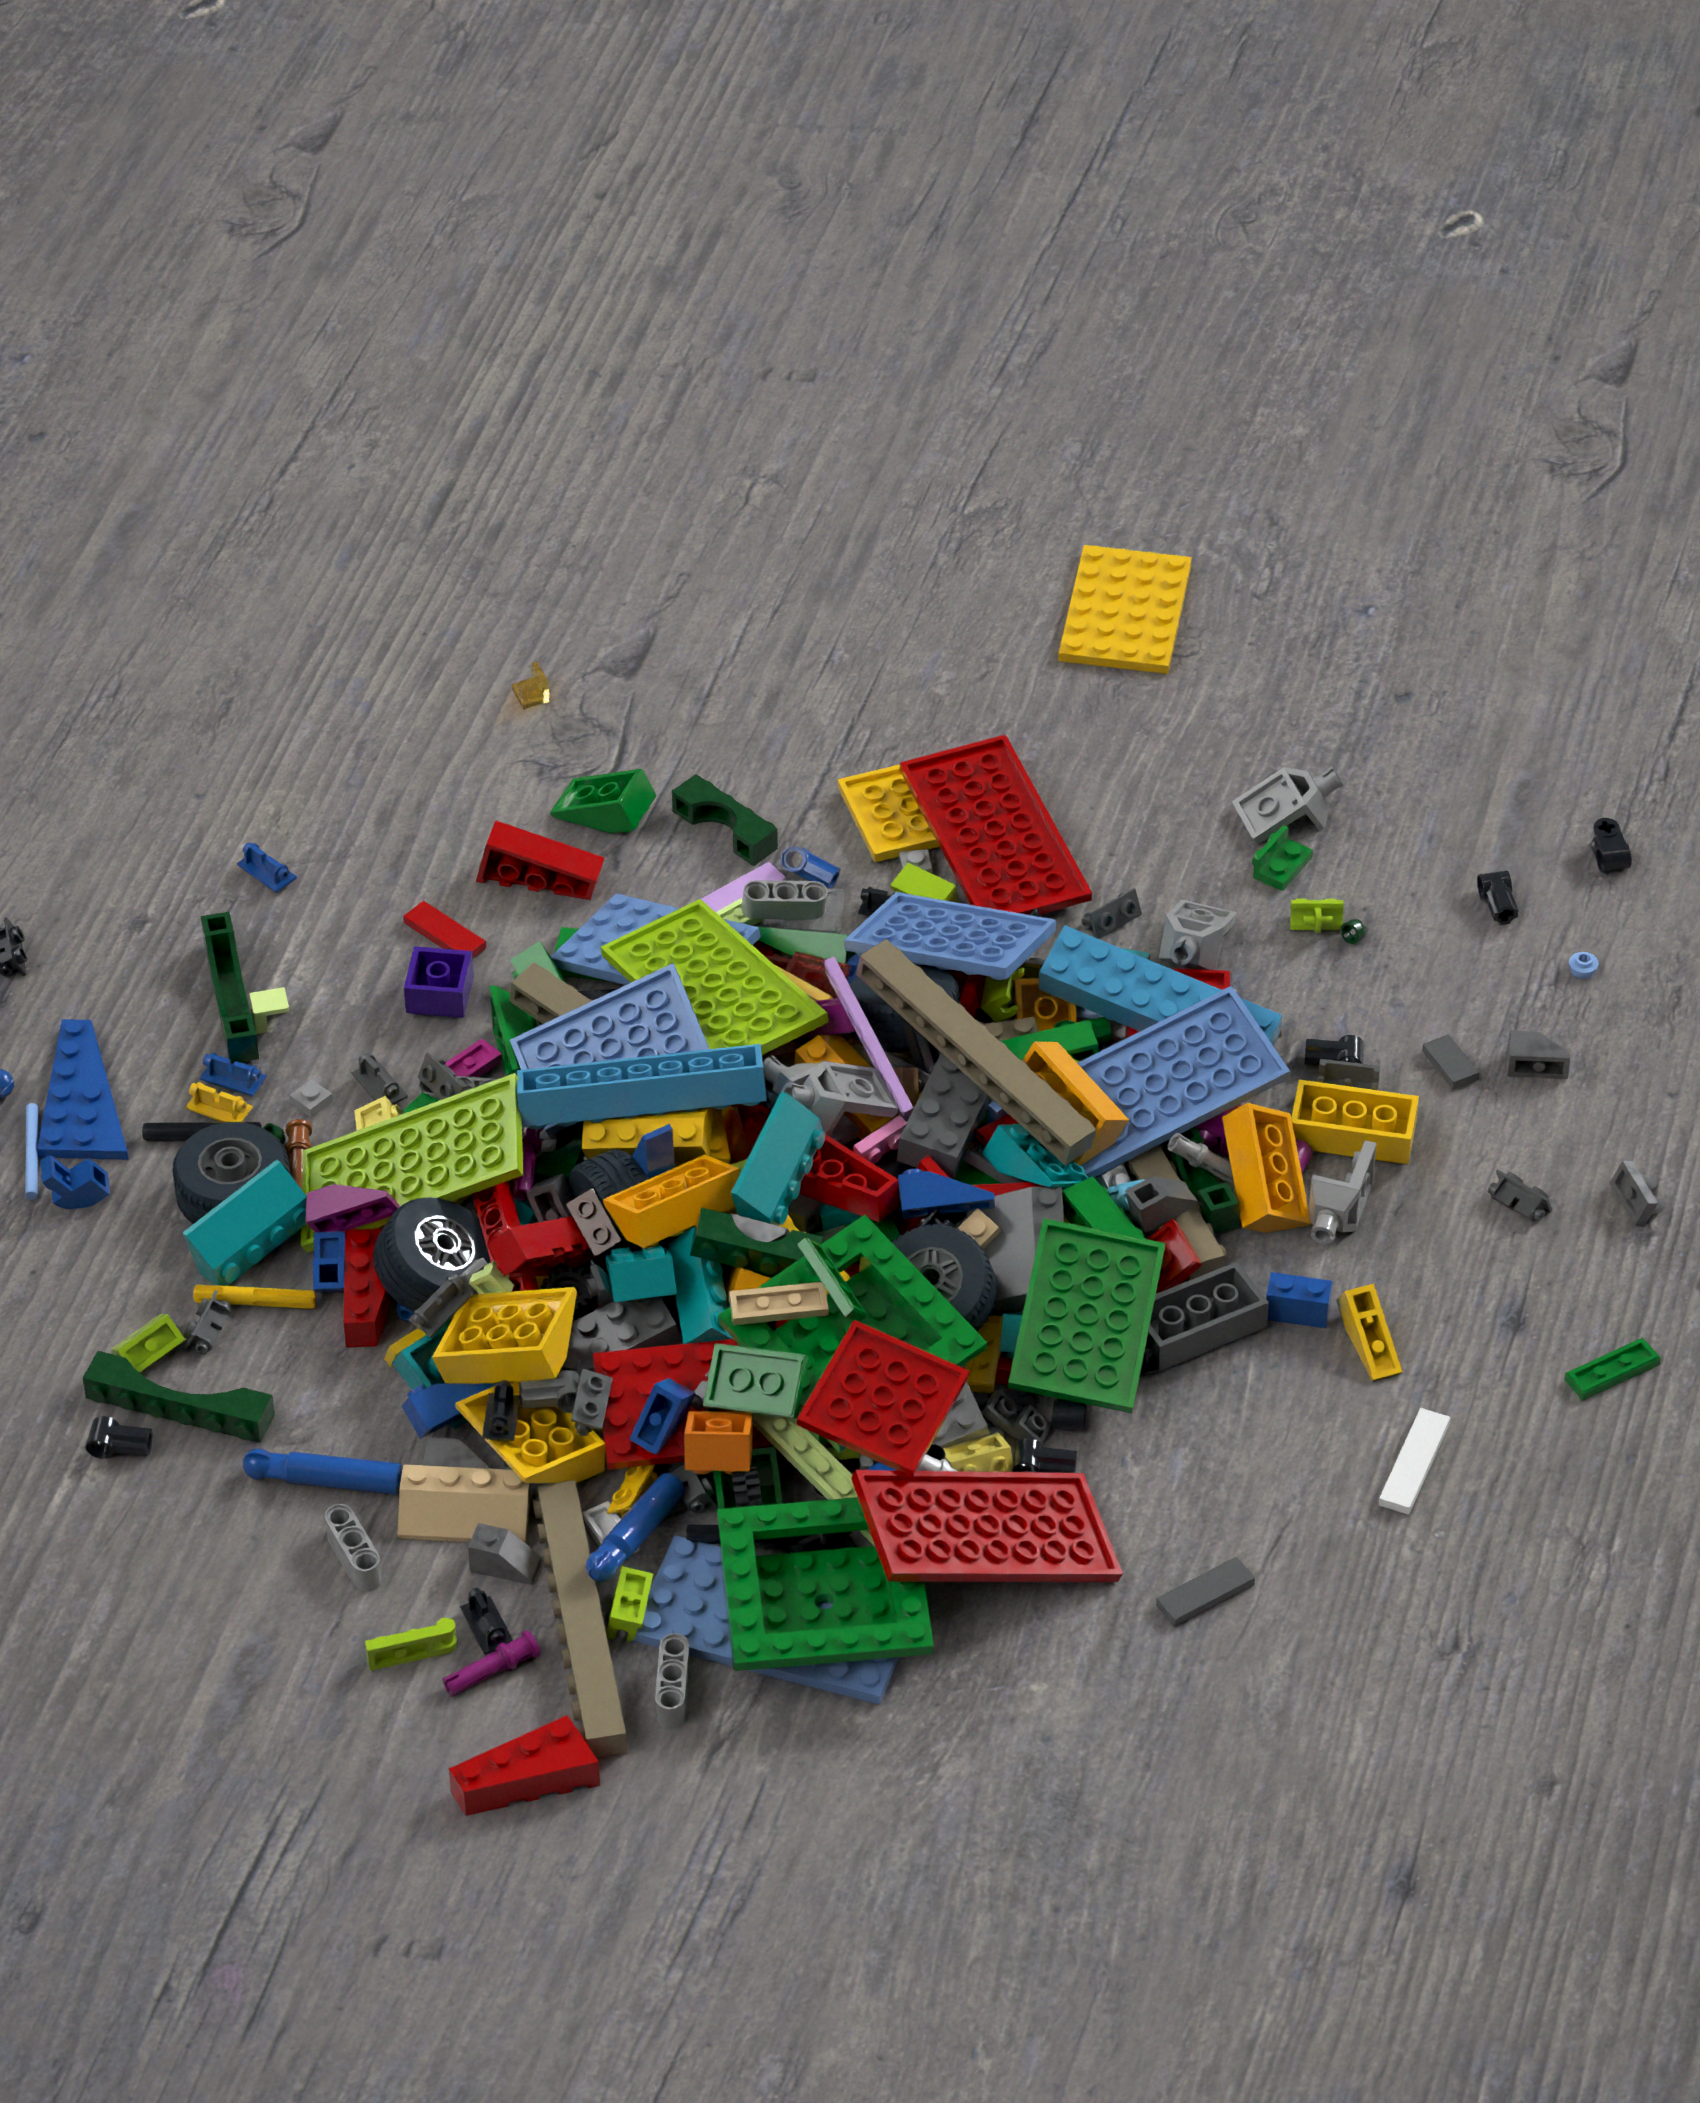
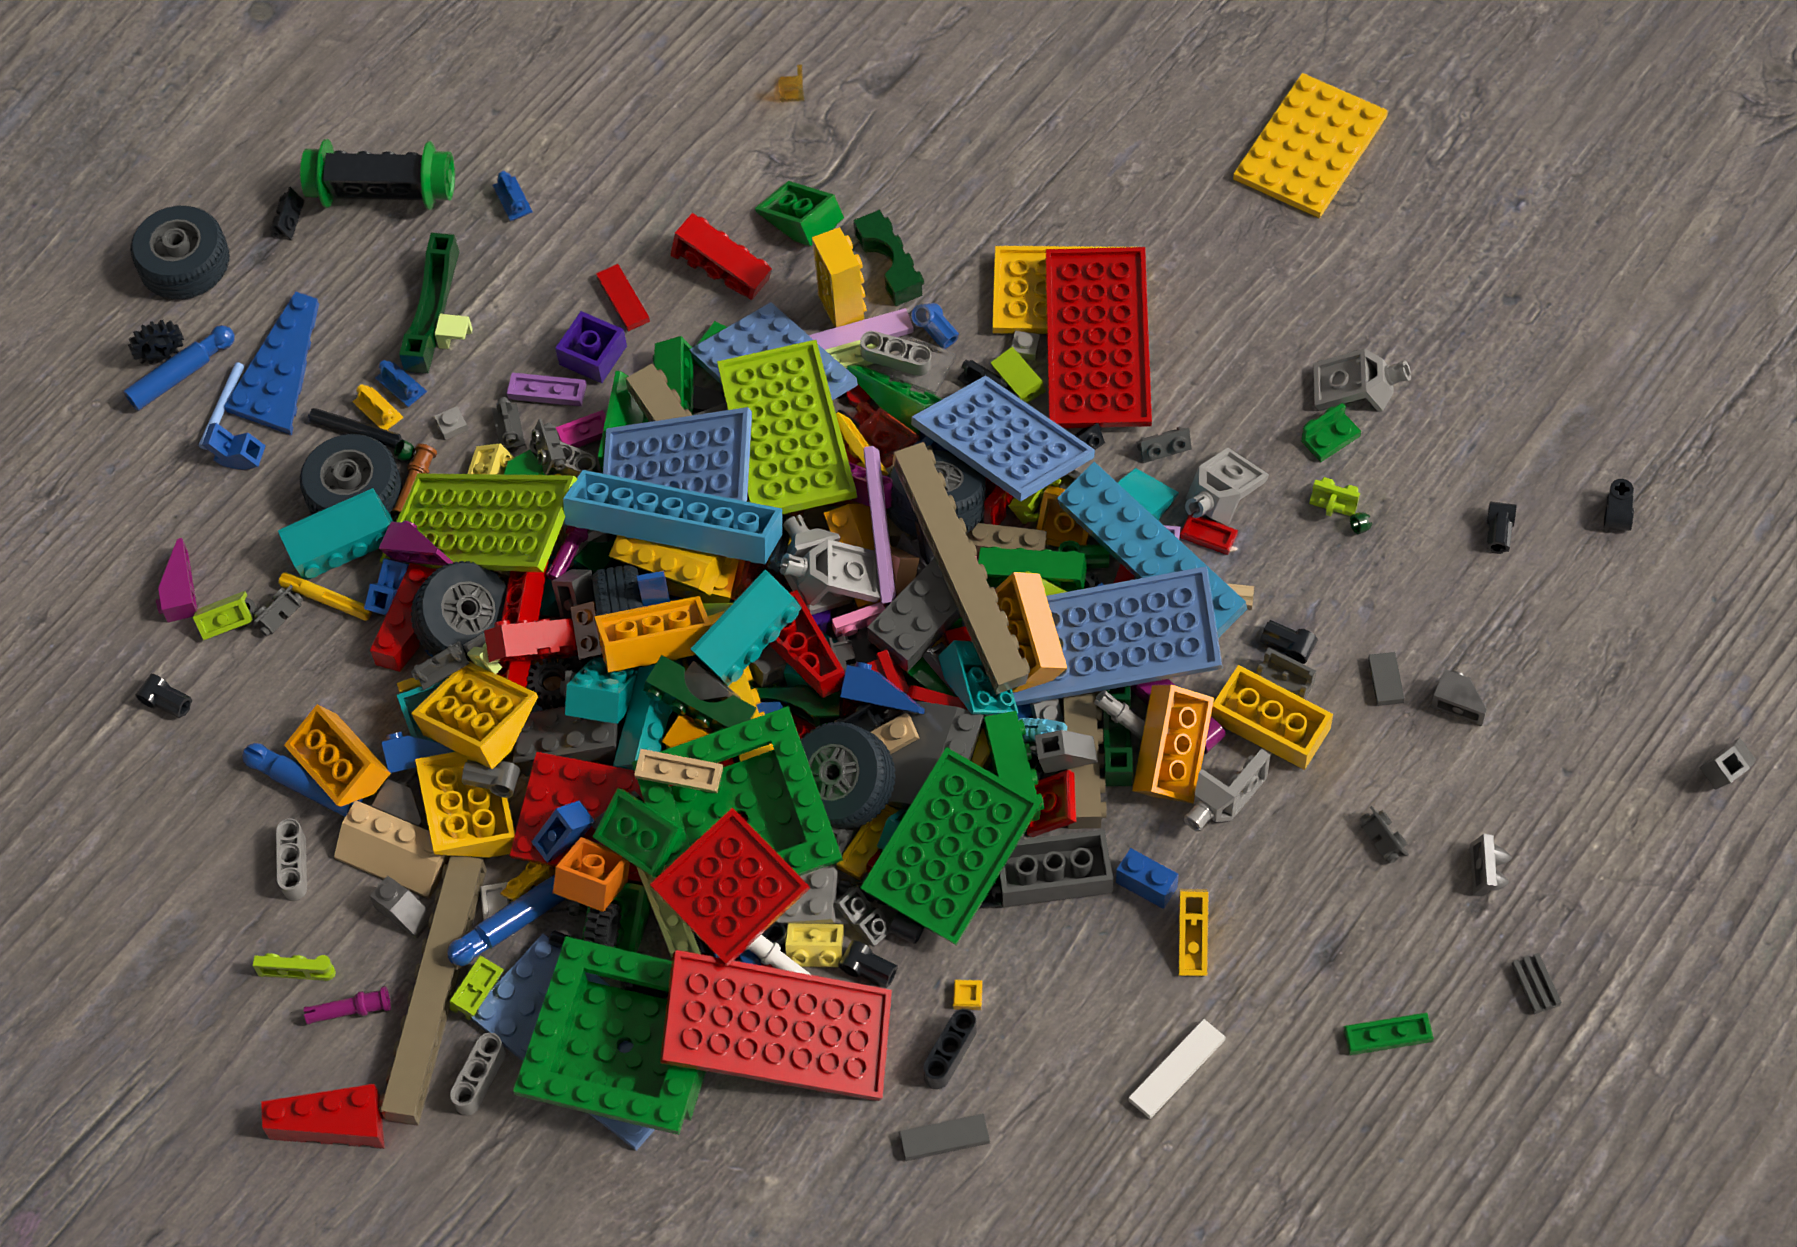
camera: 25 degrees right, 15 degrees up
(79, 1330) = (176, 587): none -> magenta slope
(108, 878) = (377, 176): none -> brick
(236, 1412) = (261, 701): dark green arch -> none
(359, 1430) = (336, 757): none -> light orange slope
(406, 1037) = (546, 389): none -> medium lavender plate
(485, 1621) = (363, 965): black hinge -> none
(501, 1413) = (441, 785): black hinge -> none
(590, 1402) = (513, 797): dark grey hinge -> none
(692, 839) = (839, 277): none -> yellow brick
(832, 1280) = (729, 764): green tile -> none
(1162, 1460) = (967, 994): none -> yellow tile
(1171, 1509) = (950, 1036): none -> black beam
(1583, 965) = (1541, 622): light blue plate -> none

